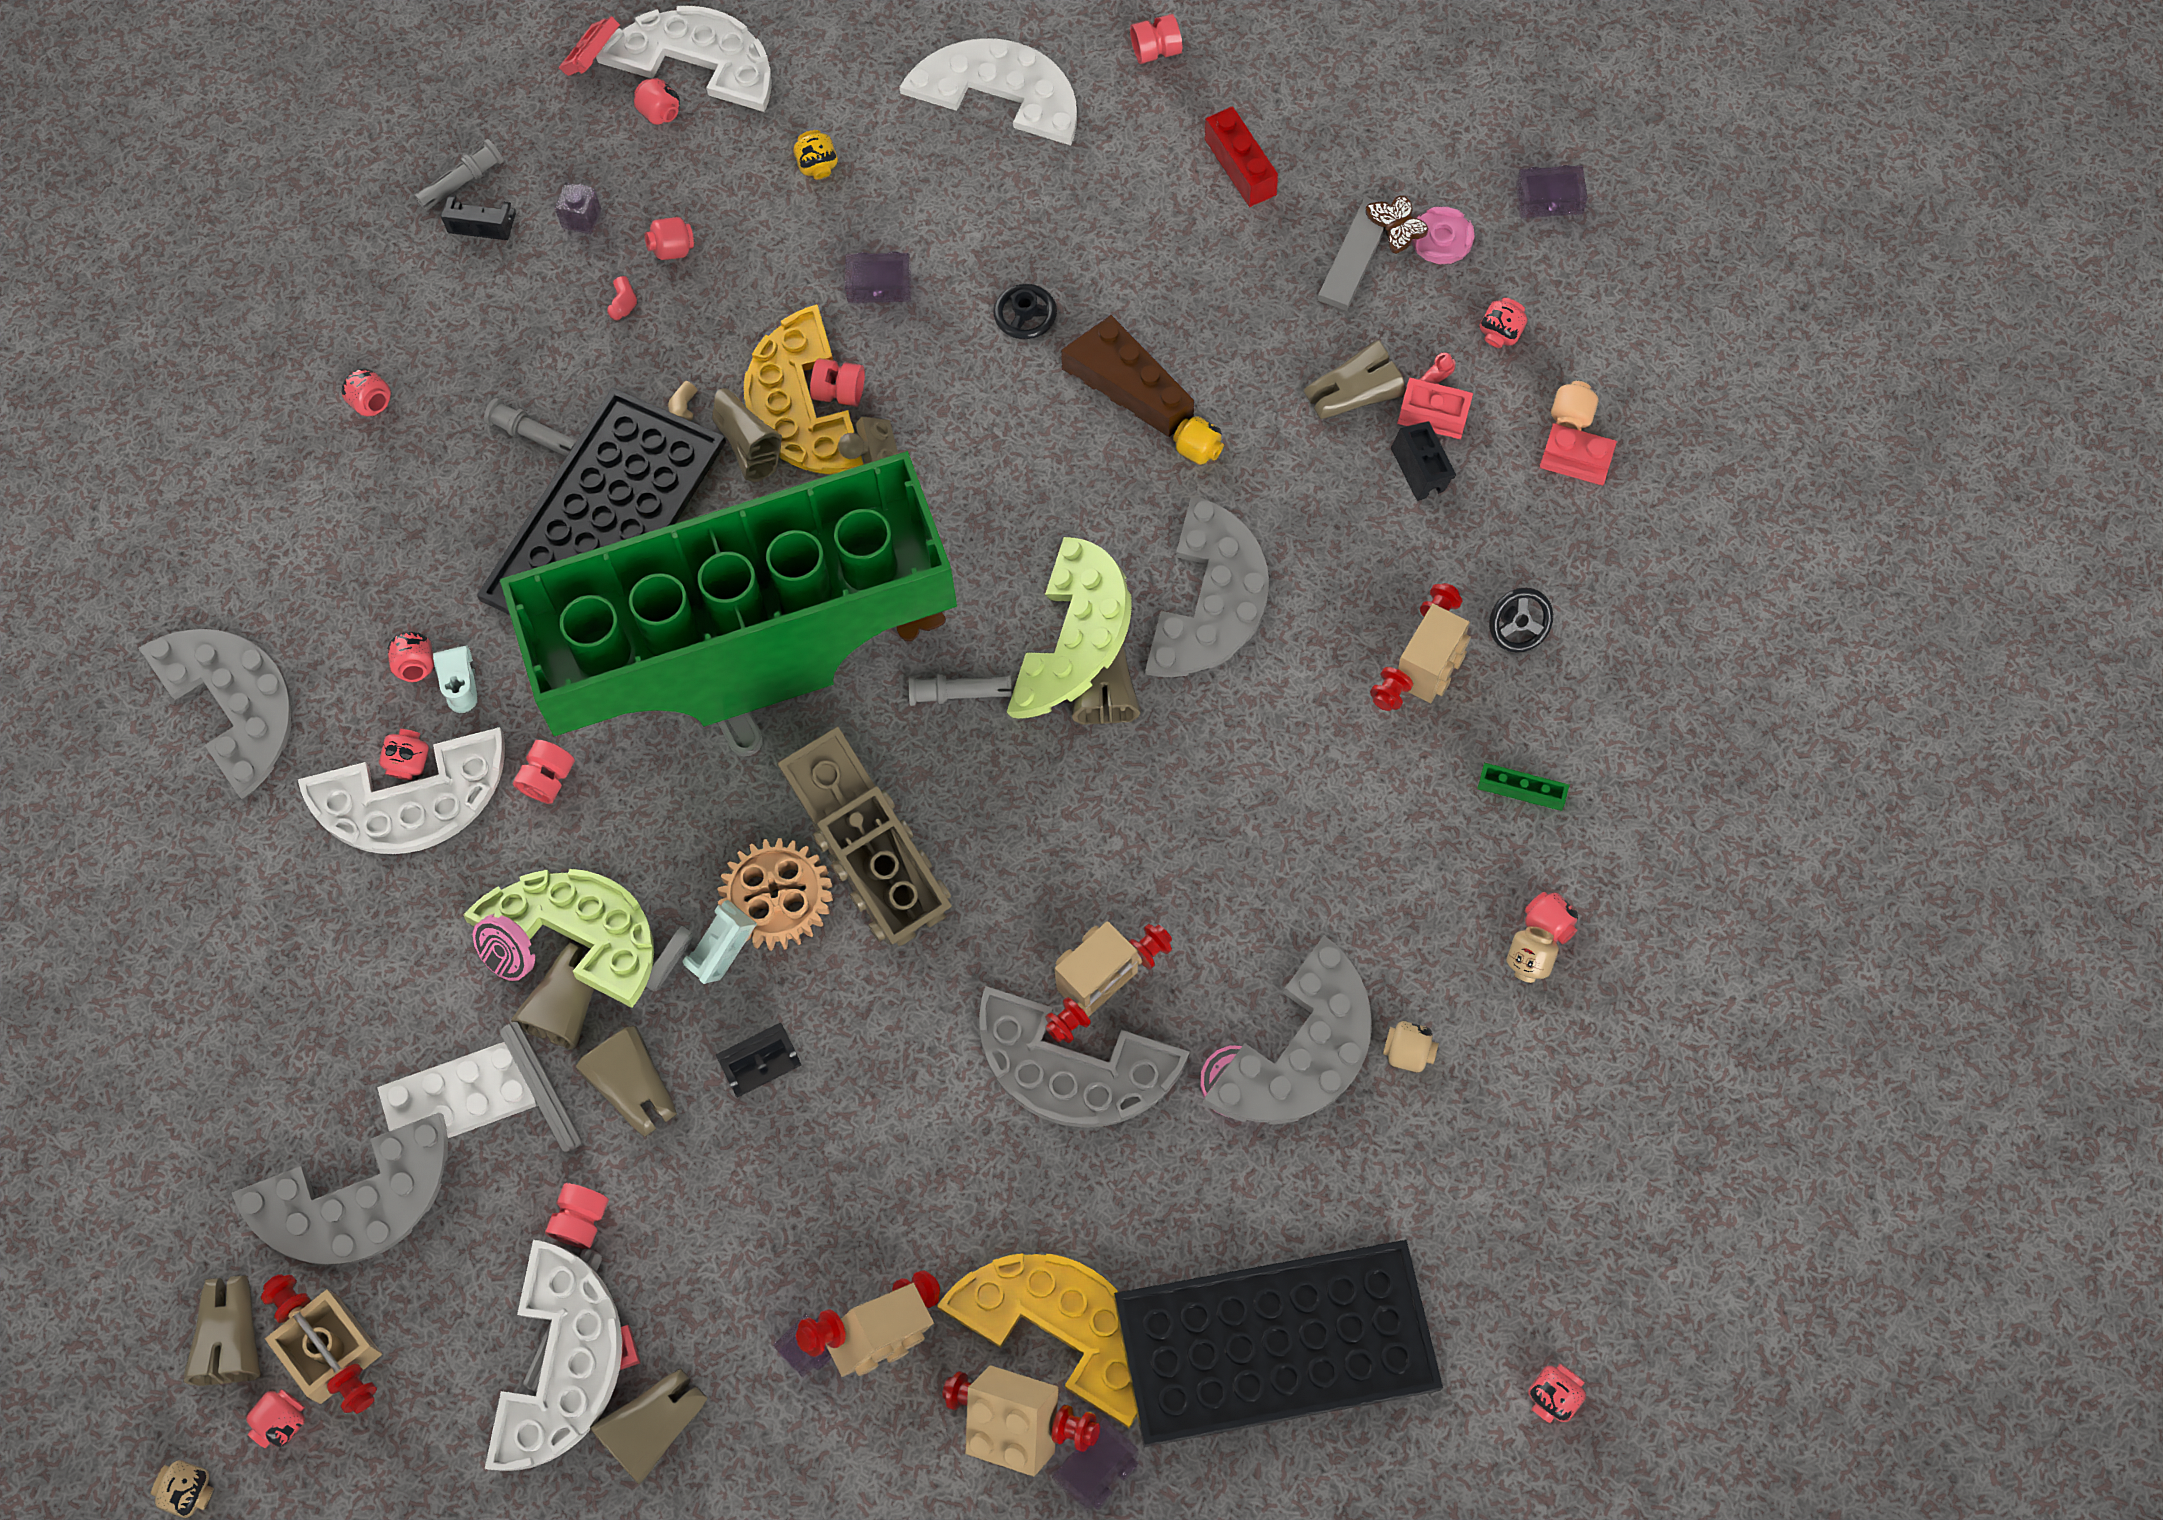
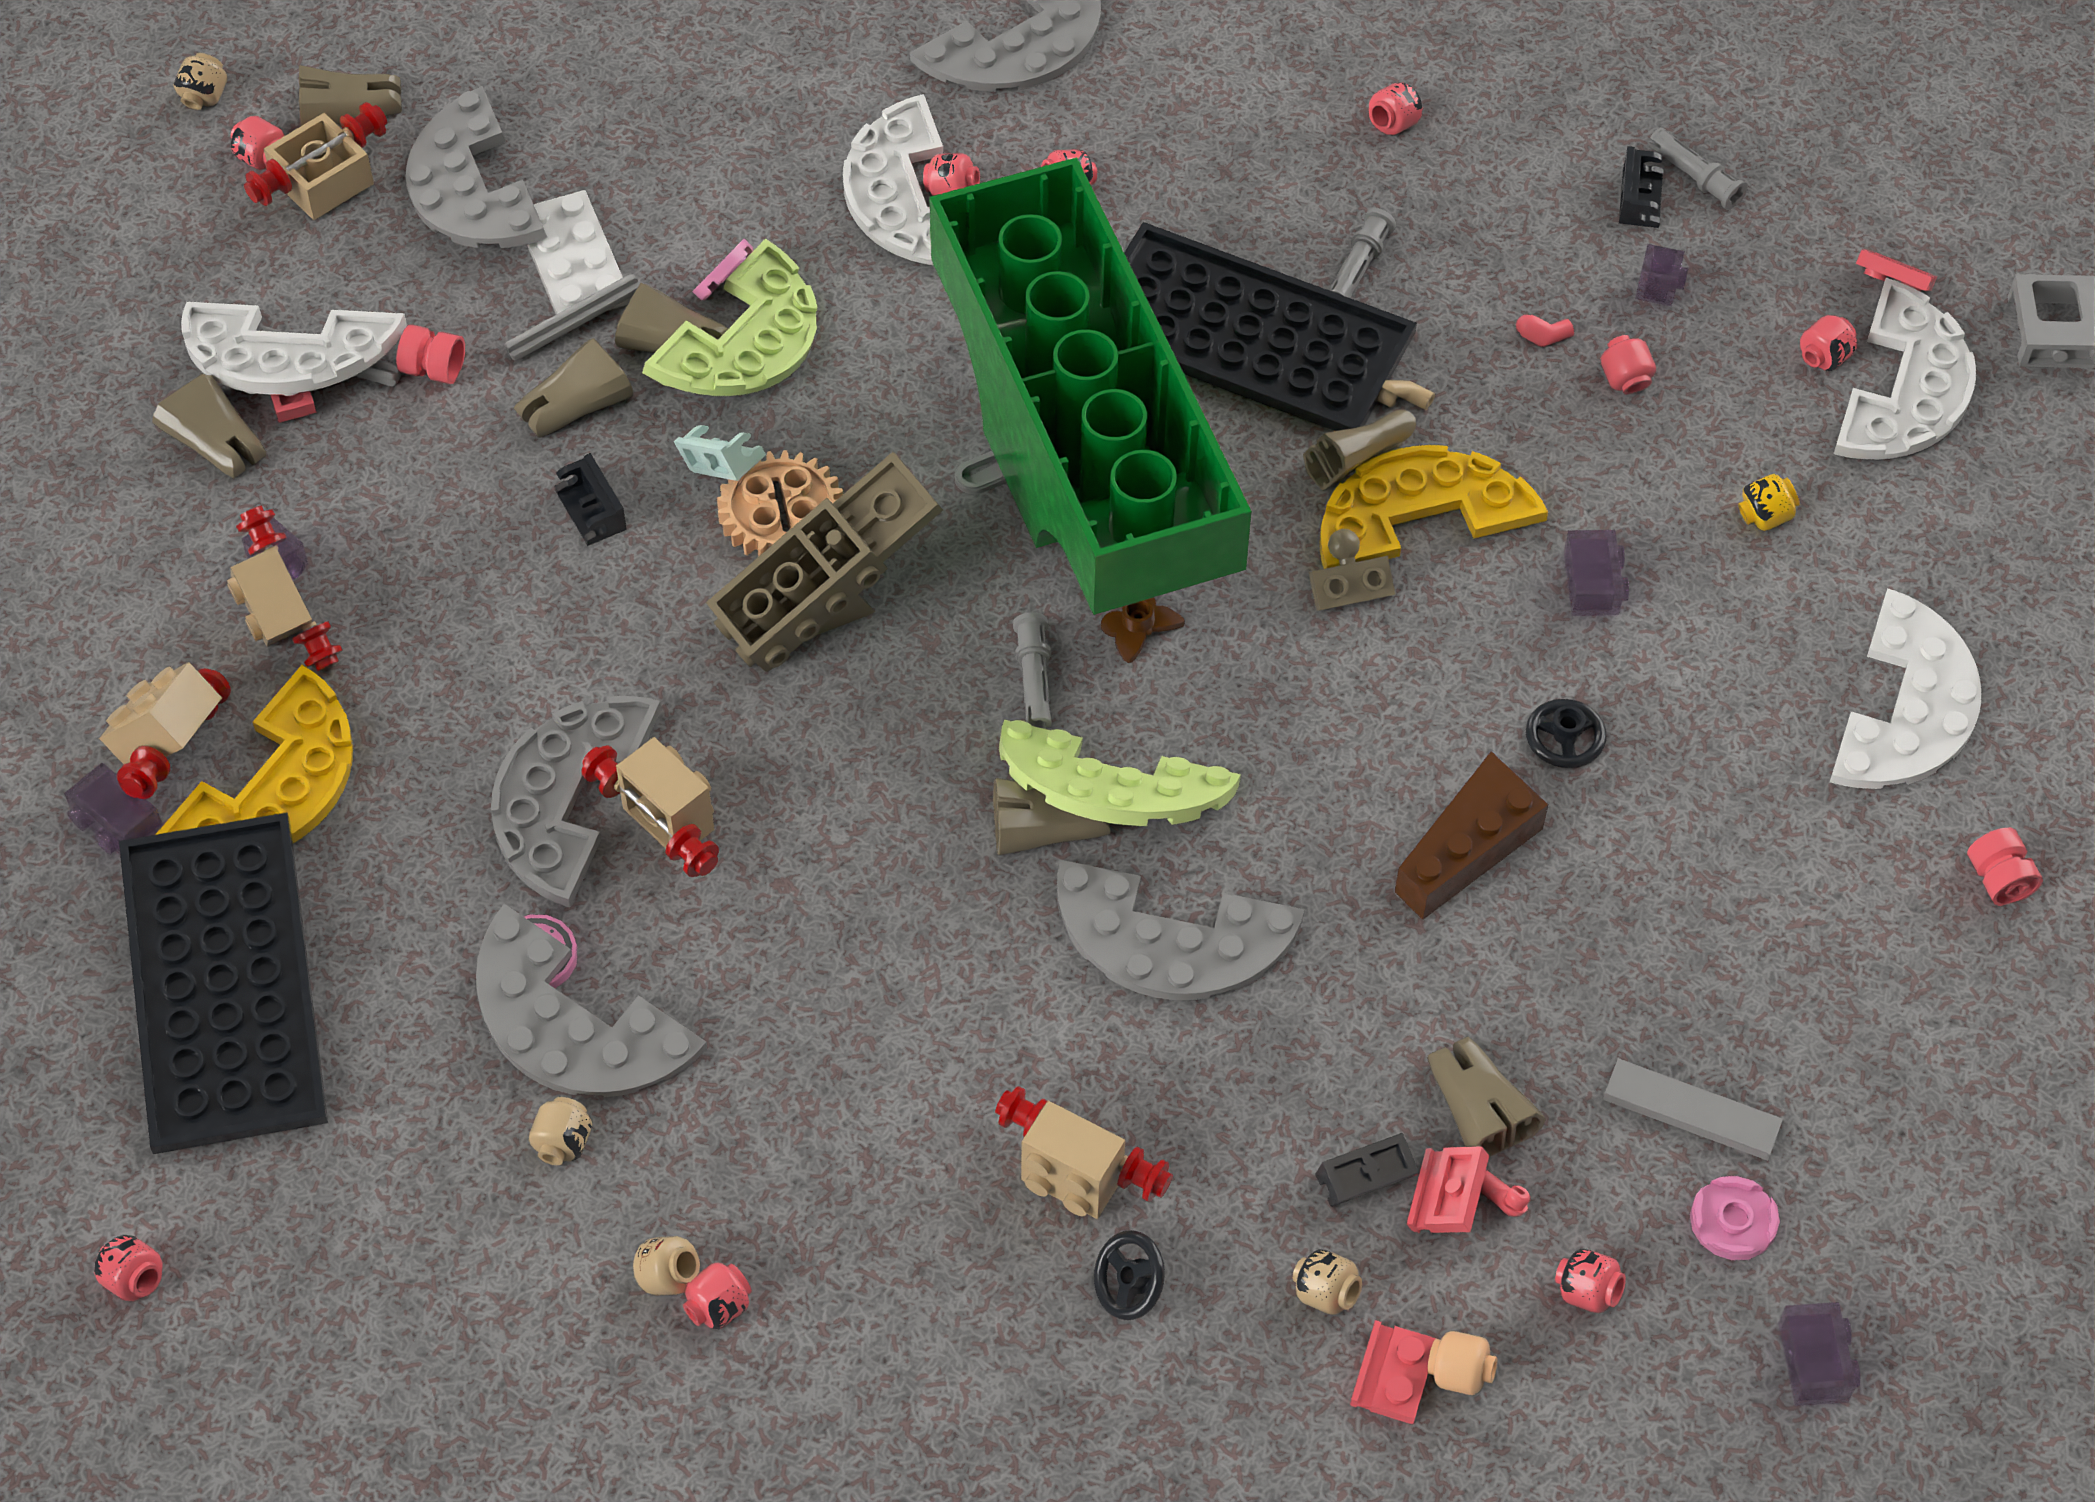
camera: 85 degrees right, 10 degrees down
(542, 774) = (918, 283): coral wheel -> none
(669, 958) = (708, 413): light grey tile -> none
(848, 379) = (1438, 534): coral wheel -> none
(1198, 440) = (1384, 916): yellow head -> none
(1241, 156) = (1824, 965): red brick -> none
(1398, 222) = (1742, 1156): reddish brown animal -> none
(1514, 490) = (1327, 1282): none -> tan head
(1523, 786) = (898, 1275): green piece -> none

